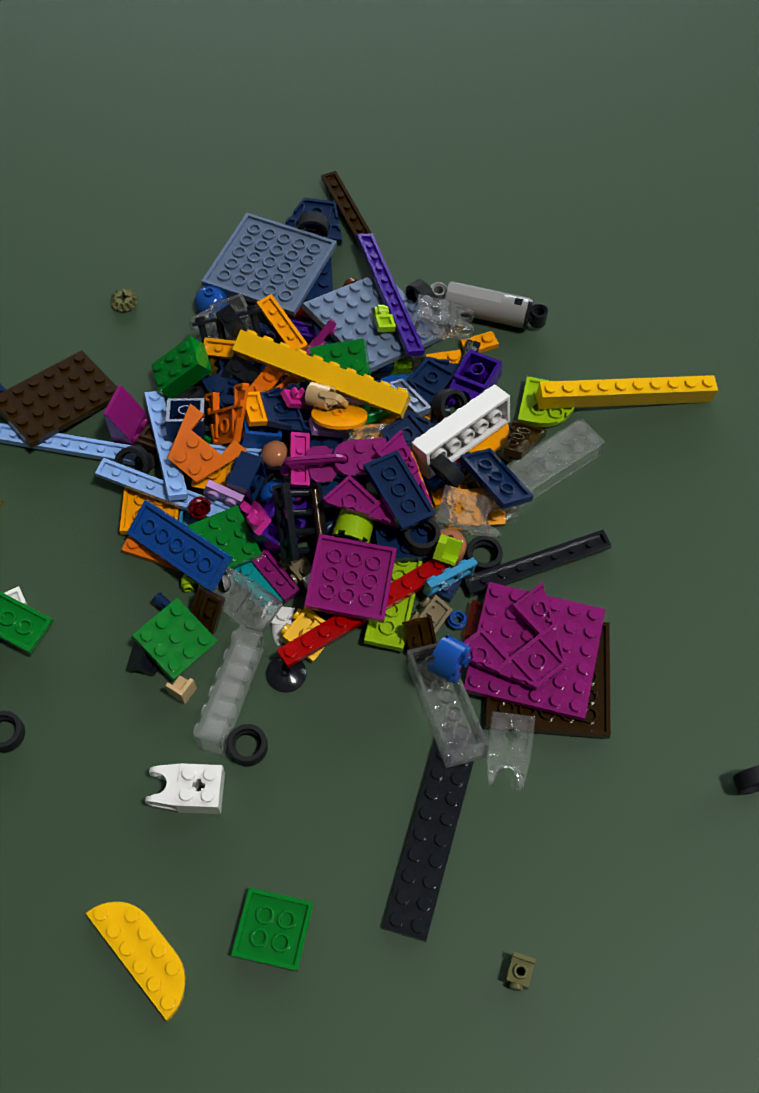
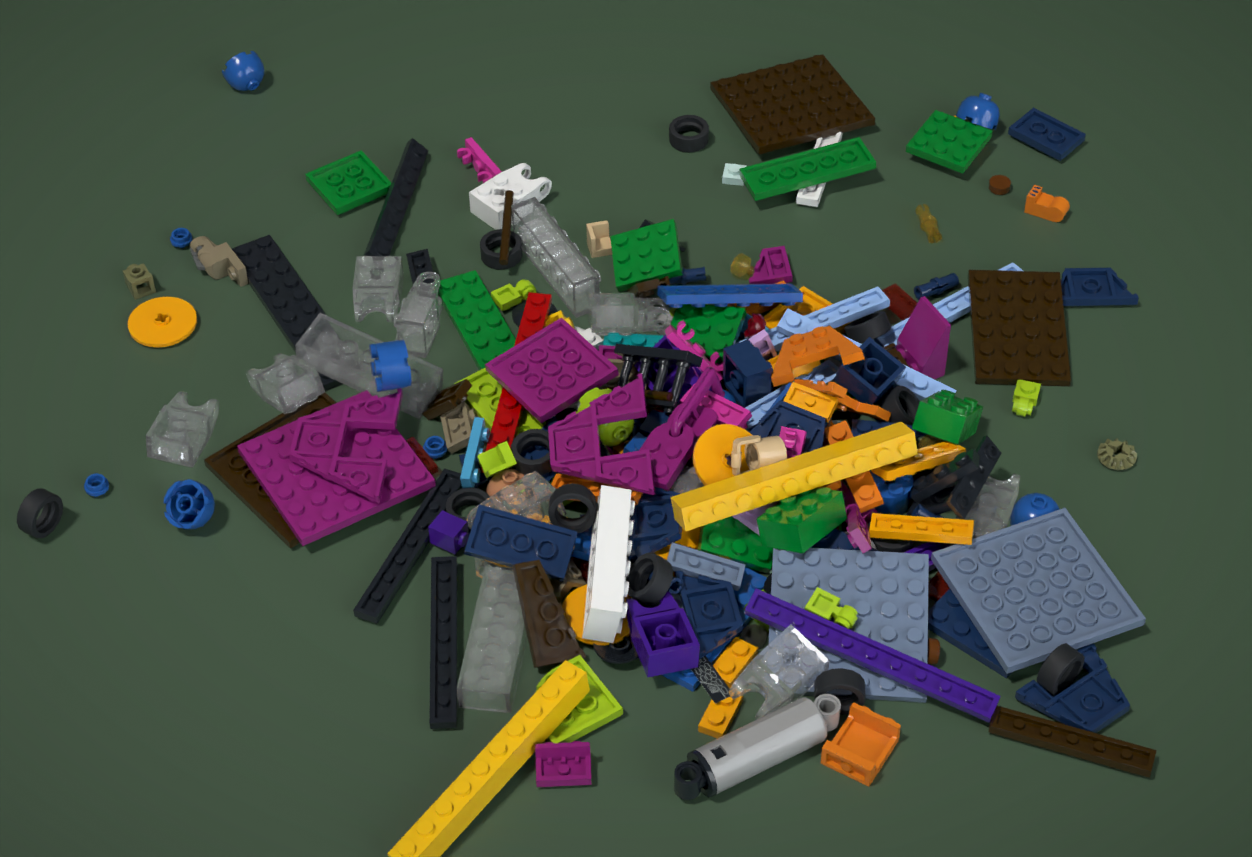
camera: 135 degrees right, 15 degrees down
(26, 667) = (731, 174): none -> light aqua plate
(51, 465) = (936, 286): none -> dark blue pin
(85, 473) = (900, 301): none -> clear red plate
(111, 365) = (1025, 397): none -> lime plate
(114, 565) = (772, 267): none -> magenta wing
(129, 582) = (741, 265): none -> clear yellow tile
(143, 953) = (427, 119): yellow plate -> none
(167, 845) = (482, 163): none -> dark pink plate
(233, 743) = (506, 227): none -> dark brown bar
(261, 868) = (397, 200): none -> black plate
(274, 453) = (756, 405): nougat hair -> none
(289, 697) = (510, 296): none -> lime plate
(322, 771) = (419, 263): none -> black plate
(327, 699) = (475, 317): none -> green plate
(367, 721) = (420, 315): none -> clear brick
(371, 779) = (377, 286): none -> clear brick
(399, 490) = (586, 434): dark blue plate -> none
(440, 272) = (861, 744): none -> orange panel
(447, 934) = (218, 260): none -> dark tan plate
(448, 988) = (181, 237): none -> blue plate
(512, 545) = (448, 532): none -> dark purple brick
(519, 918) = (147, 326): none -> light orange piece
(575, 490) = (443, 643): none -> black plate
(582, 371) = (563, 764): none -> magenta bracket
(600, 778) = (181, 431): none -> clear brick
(651, 698) = (189, 504): none -> blue cylinder
(697, 781) = (96, 485): none -> blue plate

